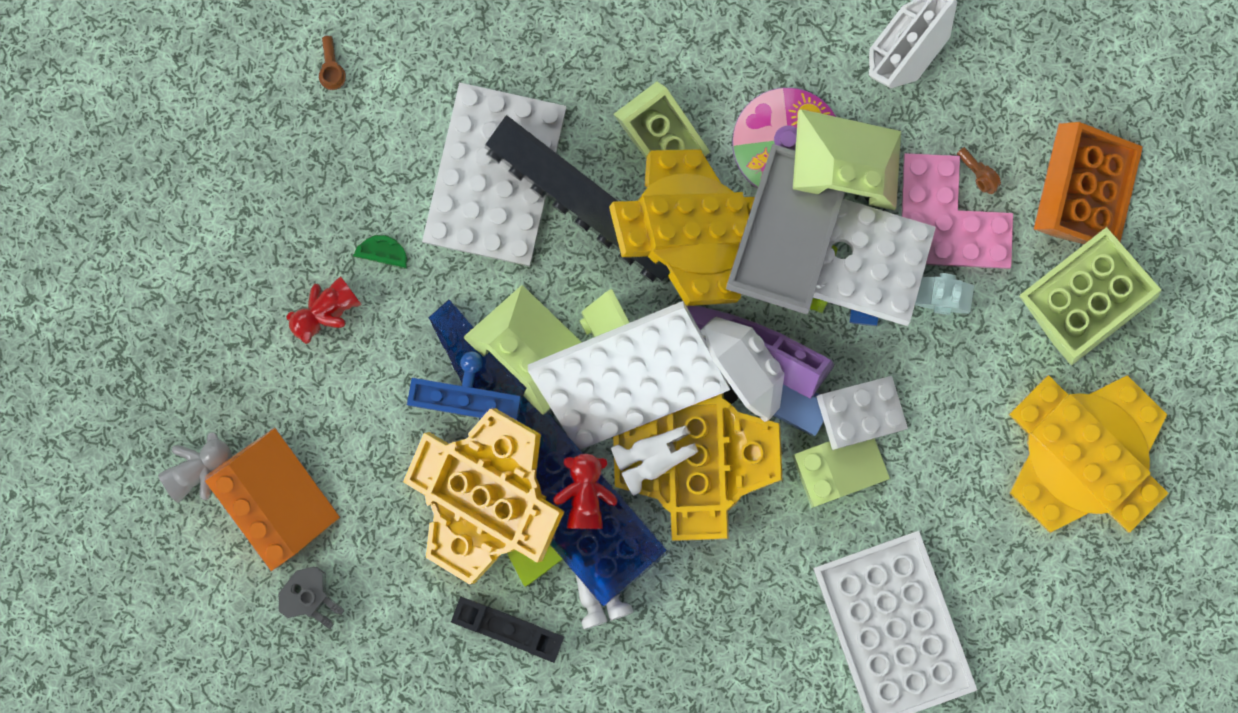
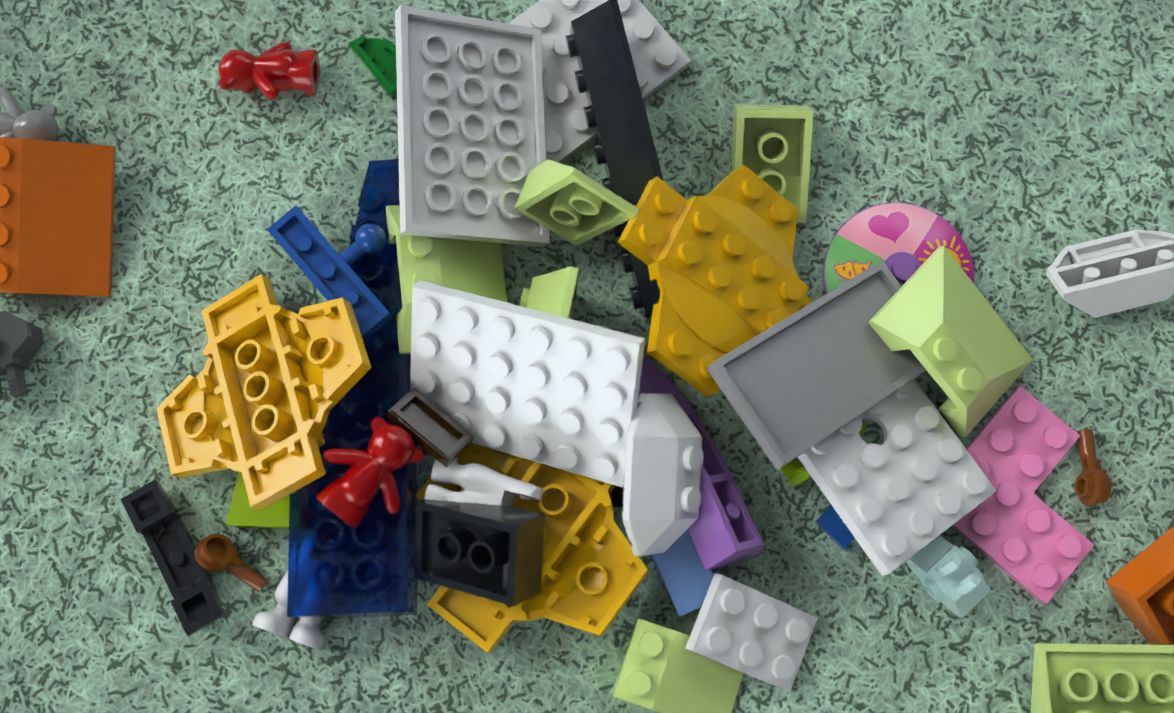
camera: 35 degrees right, 5 degrees down
(479, 253) = (467, 126): none -> white plate
(531, 608) = (218, 554): none -> dark orange plate
(571, 252) = (571, 203): none -> yellowish green slope
(596, 441) = (430, 427): none -> dark brown tile
(679, 485) = (480, 549): none -> black slope

